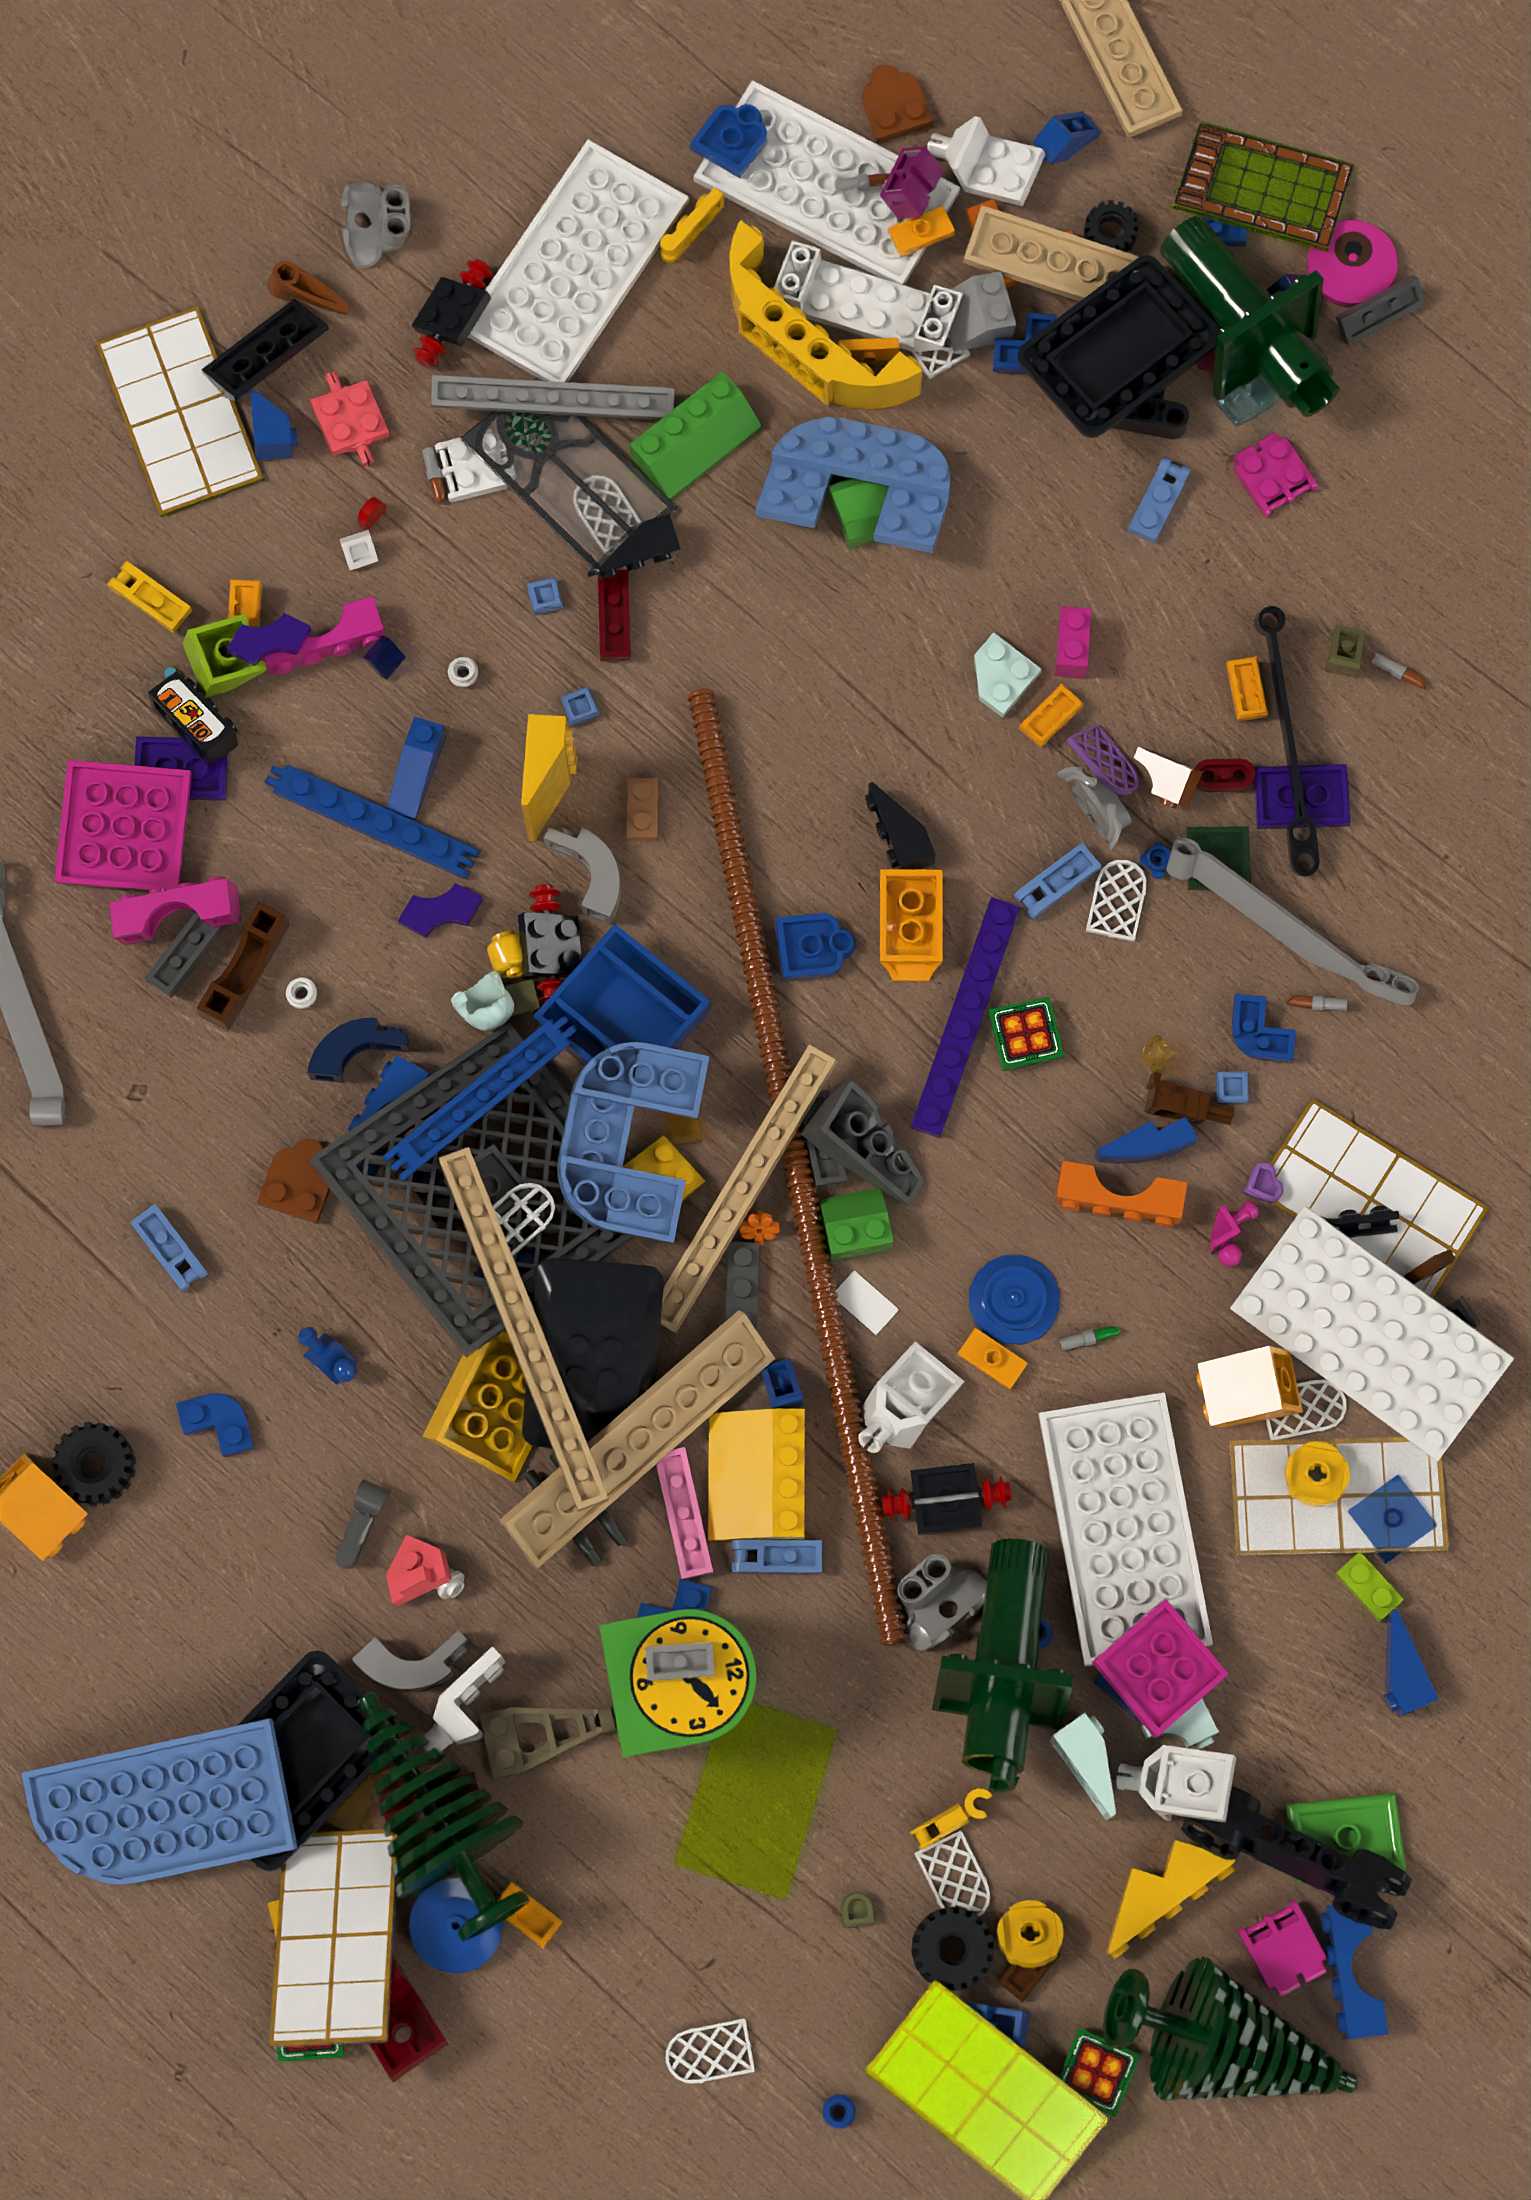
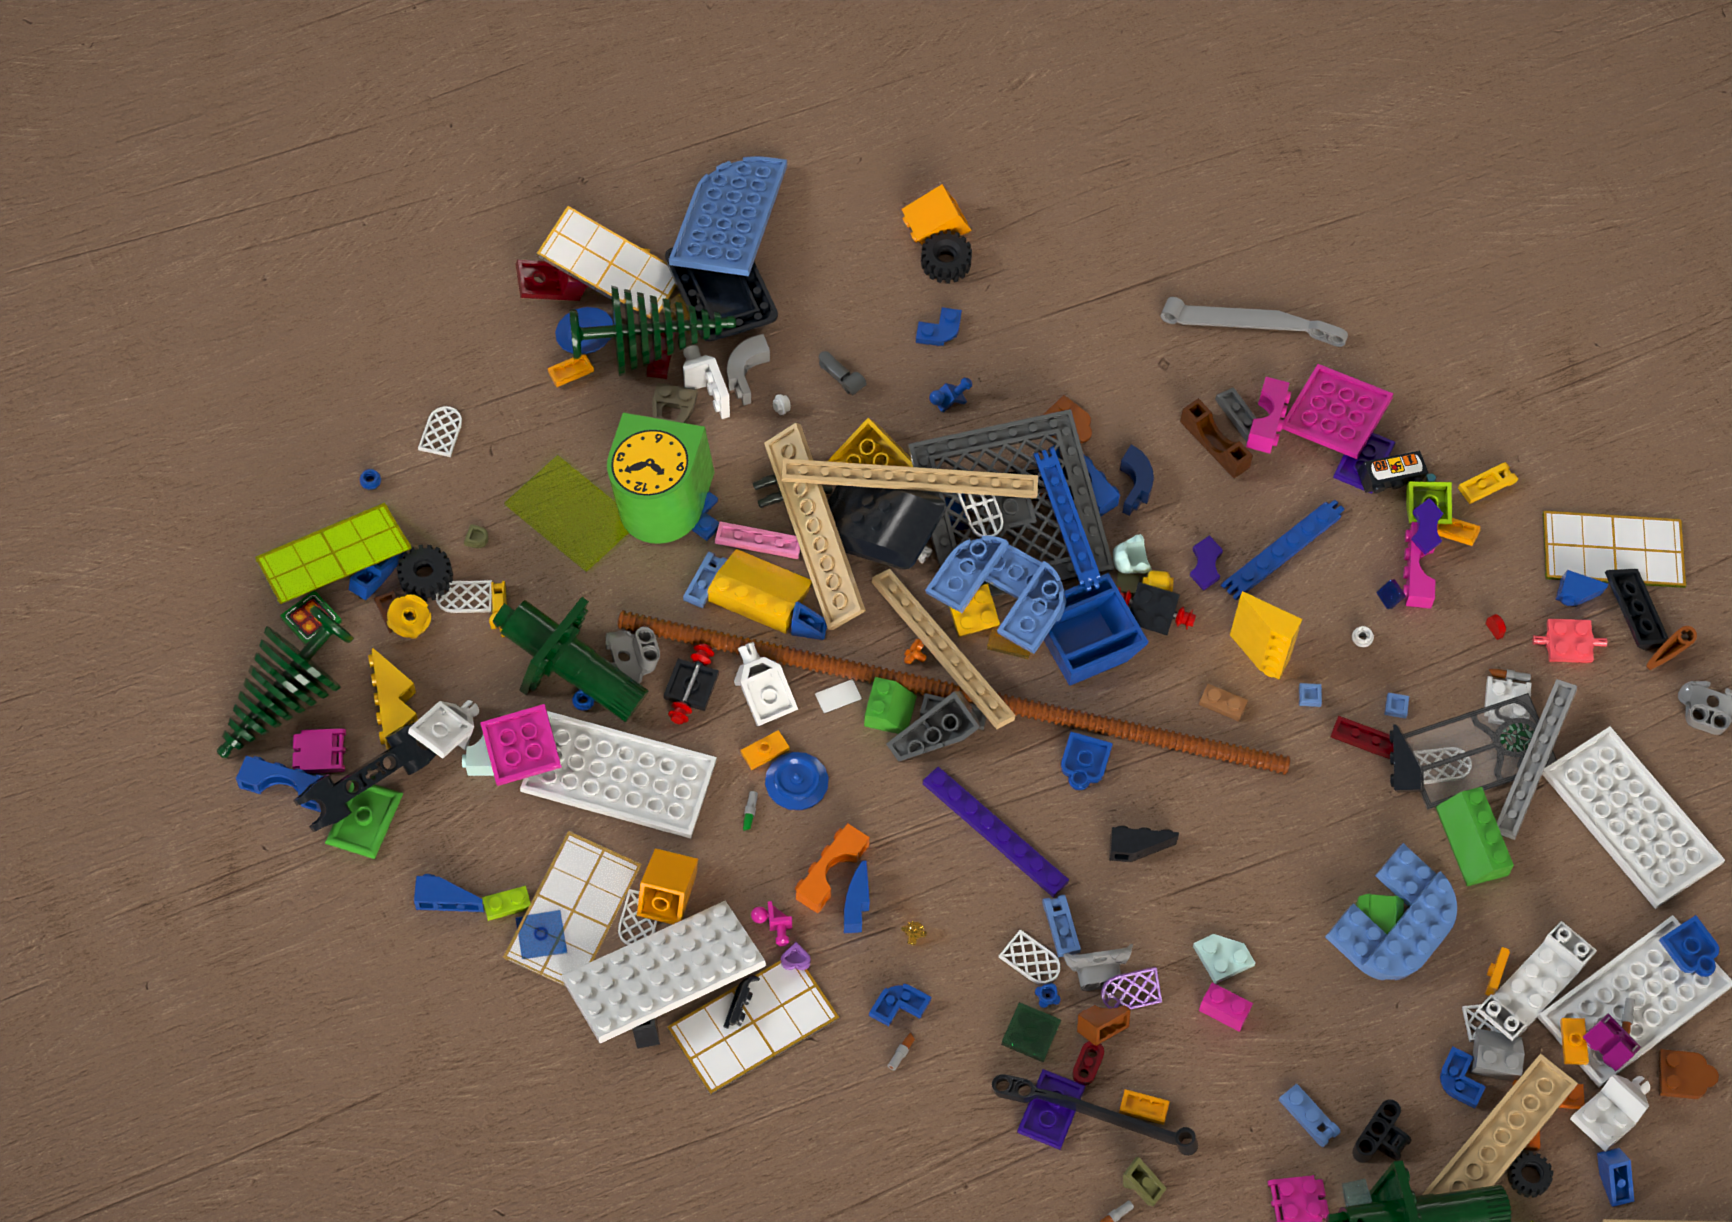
camera: 110 degrees right, 15 degrees down
(168, 1246) = (1058, 340): medium blue plate -> none
(296, 985) = (1189, 463): white plate -> none
(358, 550) = (1472, 608): white plate -> none
(416, 767) = (1309, 584): blue slope -> none
(416, 1570) = (798, 389): coral plate -> none
(451, 312) = (1624, 726): black plate -> none
(605, 886) = (1191, 659): light grey arch -> none
(680, 1661) = (660, 456): light grey plate -> none
(691, 226) = (1634, 899): yellow plate -> none
(742, 1280) = (881, 631): dark grey plate -> none
(806, 349) = (1524, 920): yellow slope -> none
(911, 923) = (1074, 821): light orange slope -> none
(1025, 1034) = (965, 859): tile -> none
(1051, 715) = (1179, 972): light orange plate -> none
(1086, 1757) = (487, 685): light aqua slope -> none
(1119, 346) = (1431, 1121): black wedge -> none
(1176, 1102) = (872, 932): reddish brown piece -> none
(1190, 861) = (1030, 1004): light grey piece -> none
(1232, 1088) = (870, 971): medium blue tile -> none
(1332, 1464) = (588, 887): yellow plate -> none
(1430, 1267) = (687, 1026): reddish brown tile -> none

